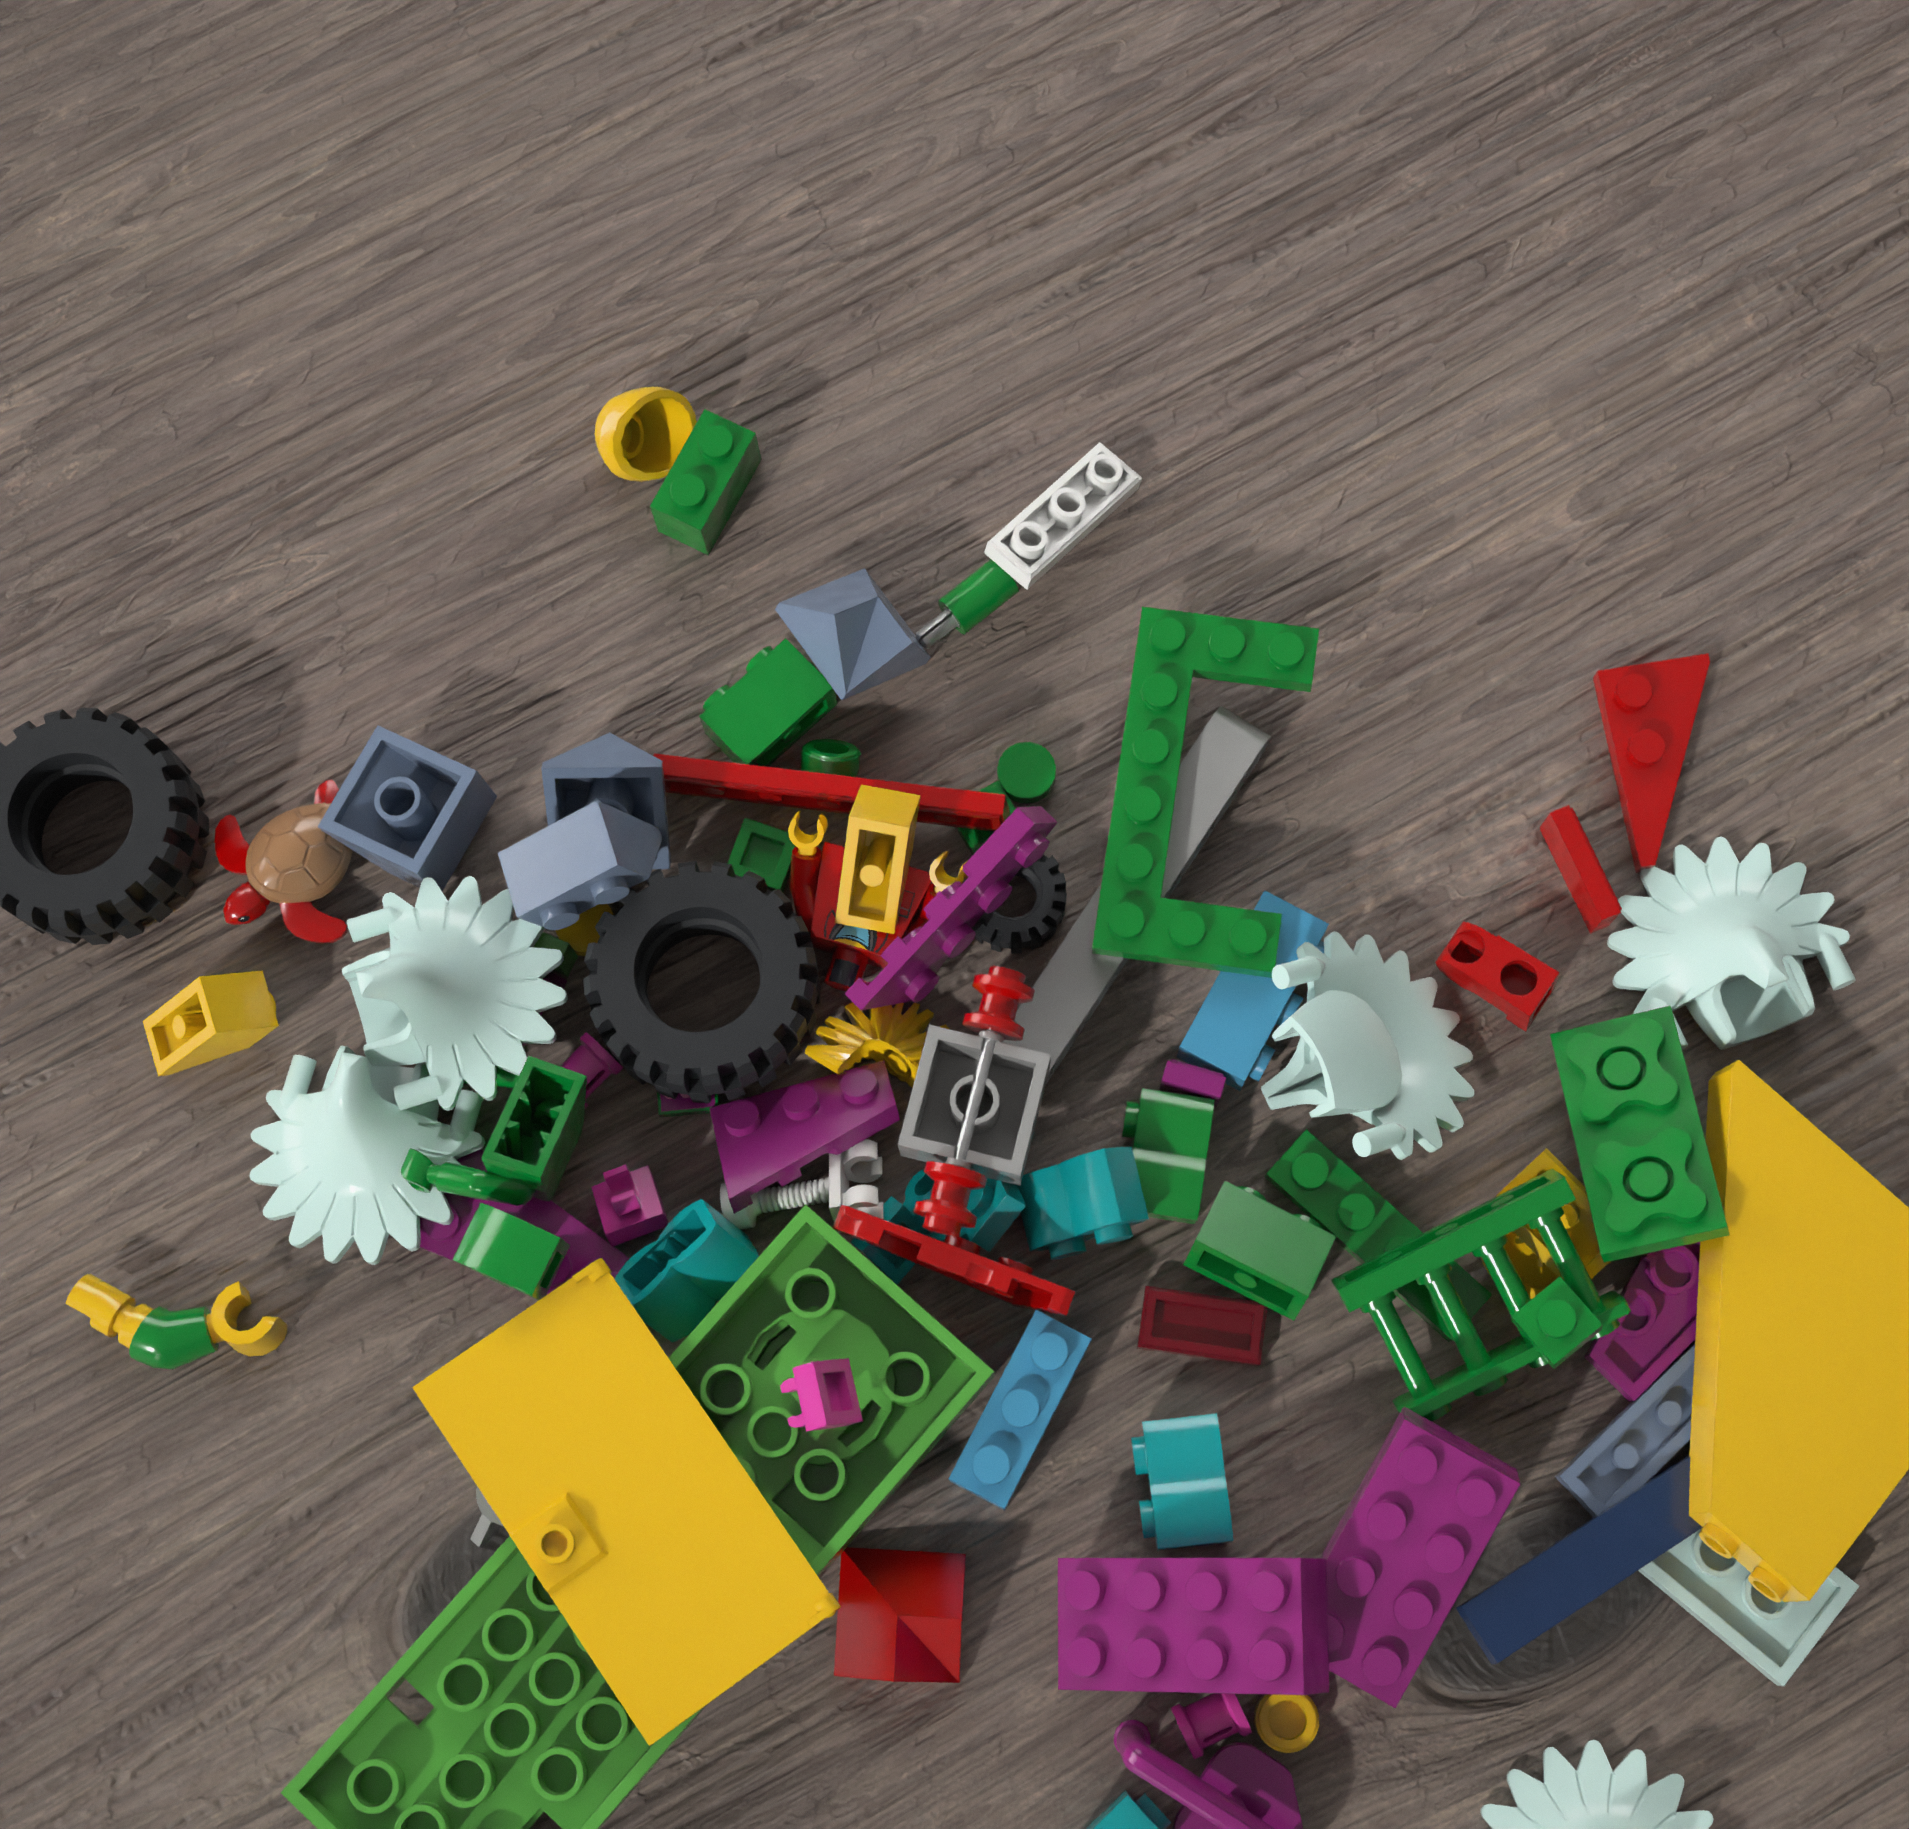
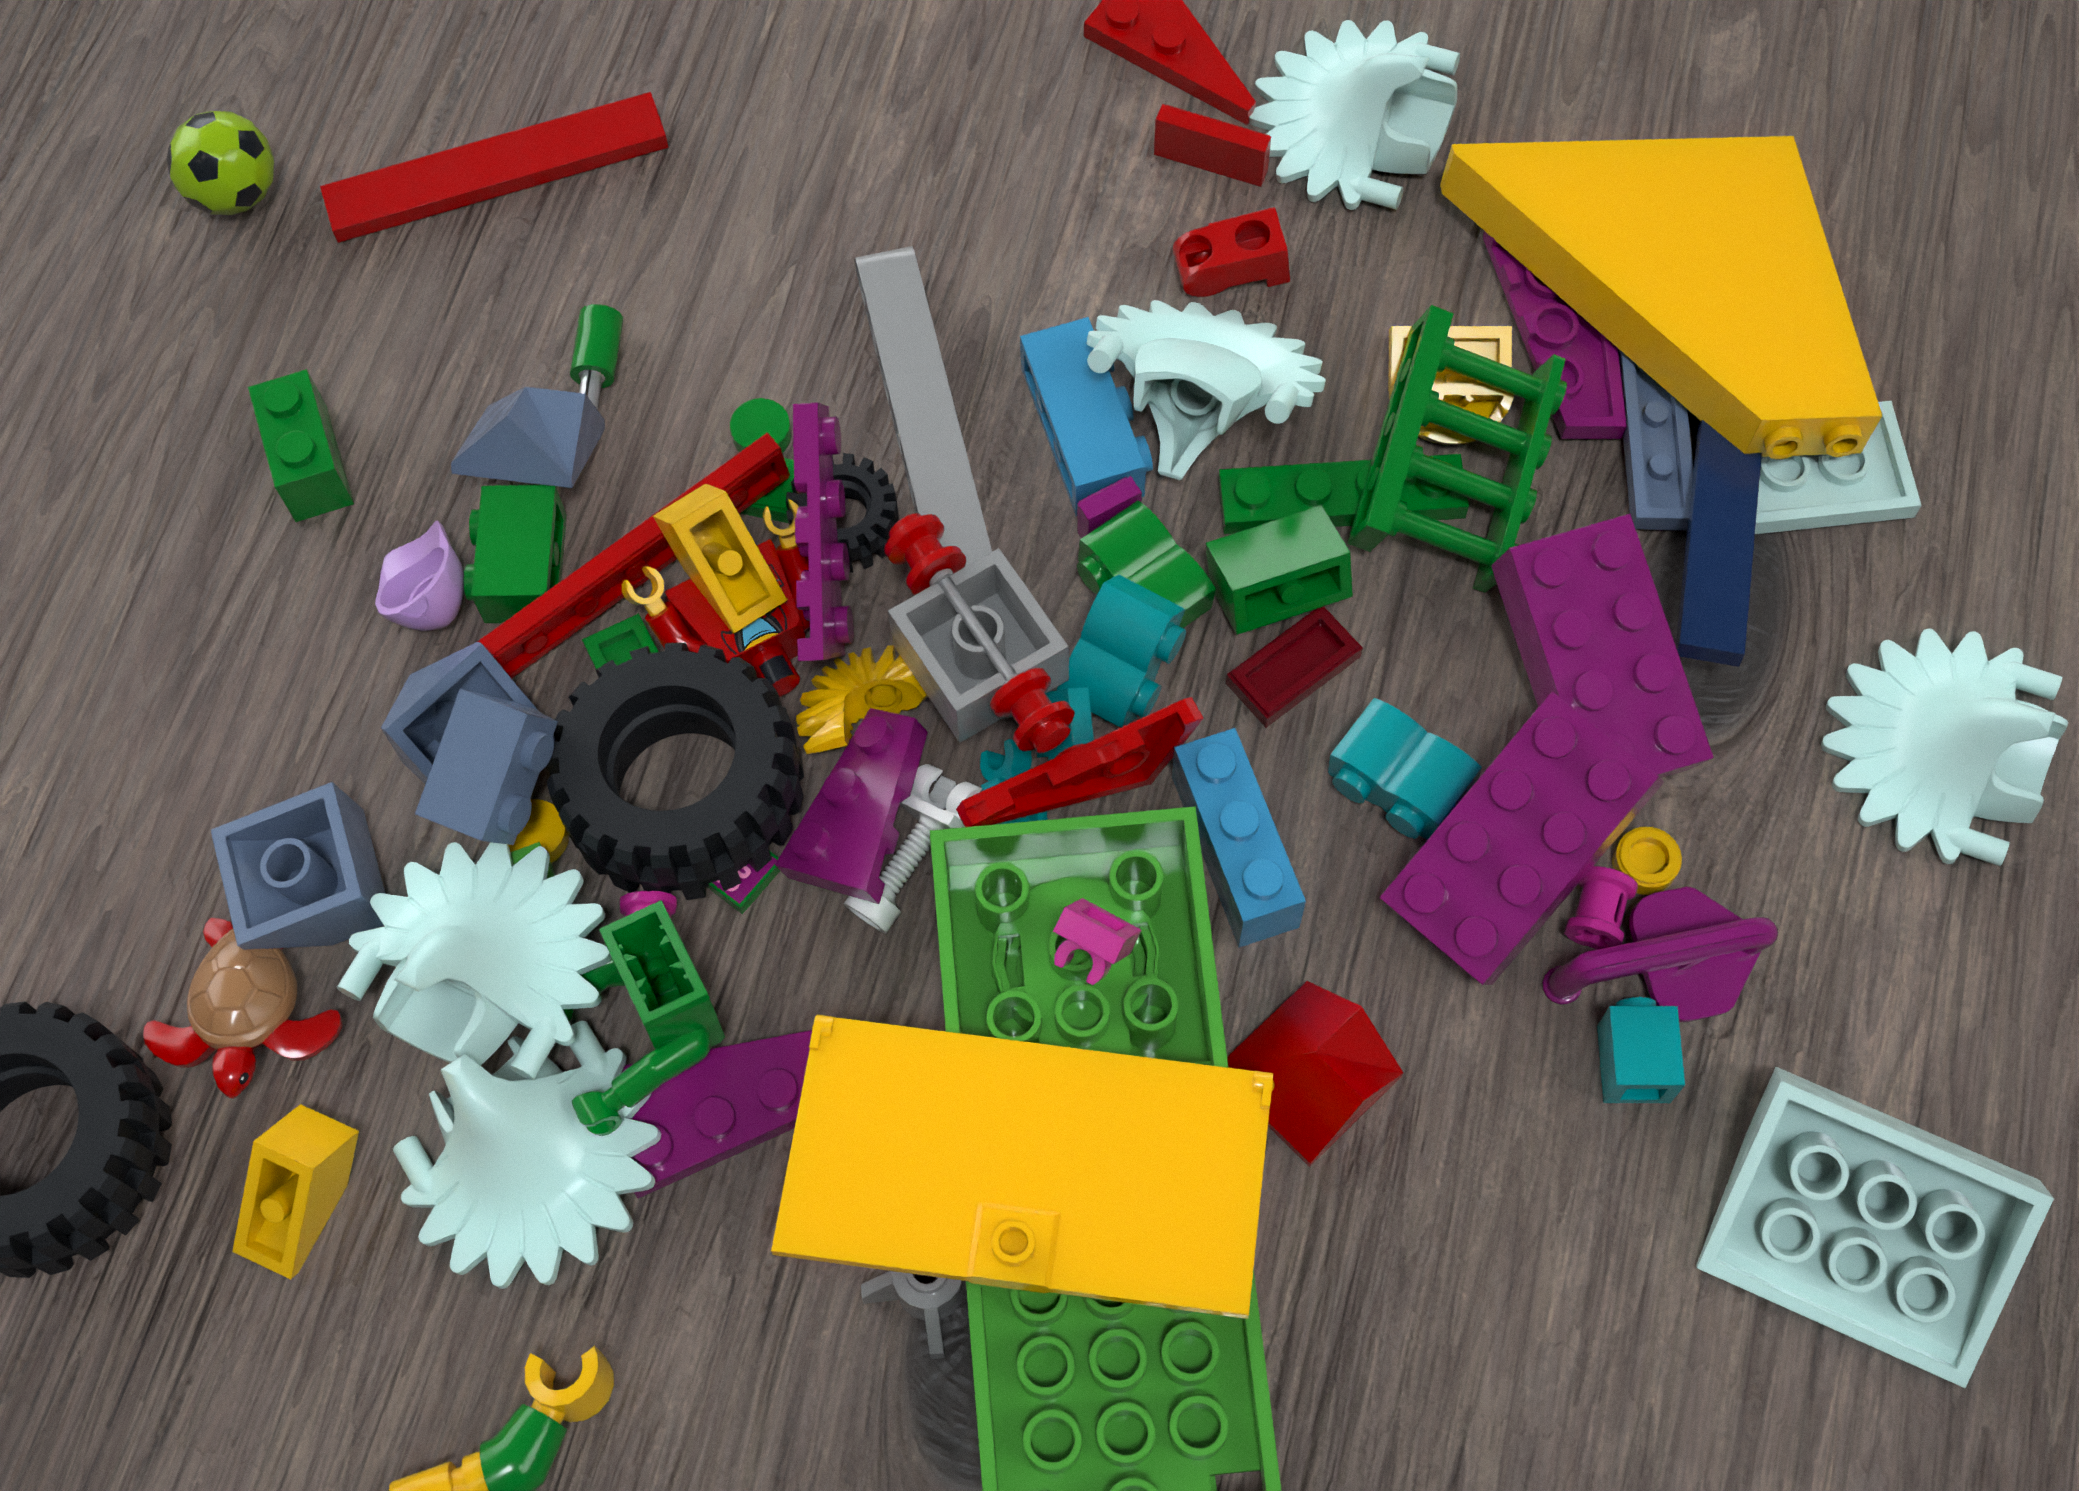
camera: 50 degrees left, 10 degrees down
(511, 1251) = (737, 1081): green brick -> none
(629, 1204) = (787, 988): dark pink tile -> none
(643, 432) = (214, 451): yellow hat -> none
(684, 666) = (422, 582): none -> lavender cap
(686, 1270) = (887, 968): teal brick -> none
(830, 757) = (600, 540): green tile -> none
(859, 200) = (220, 162): none -> lime piece
(1055, 377) = (493, 167): none -> red tile
(1063, 515) = (602, 239): white tile -> none
(1130, 911) = (942, 430): green plate -> none
(1556, 1322) = (1528, 407): green plate -> none
(1638, 1135) = (1441, 252): green piece -> none

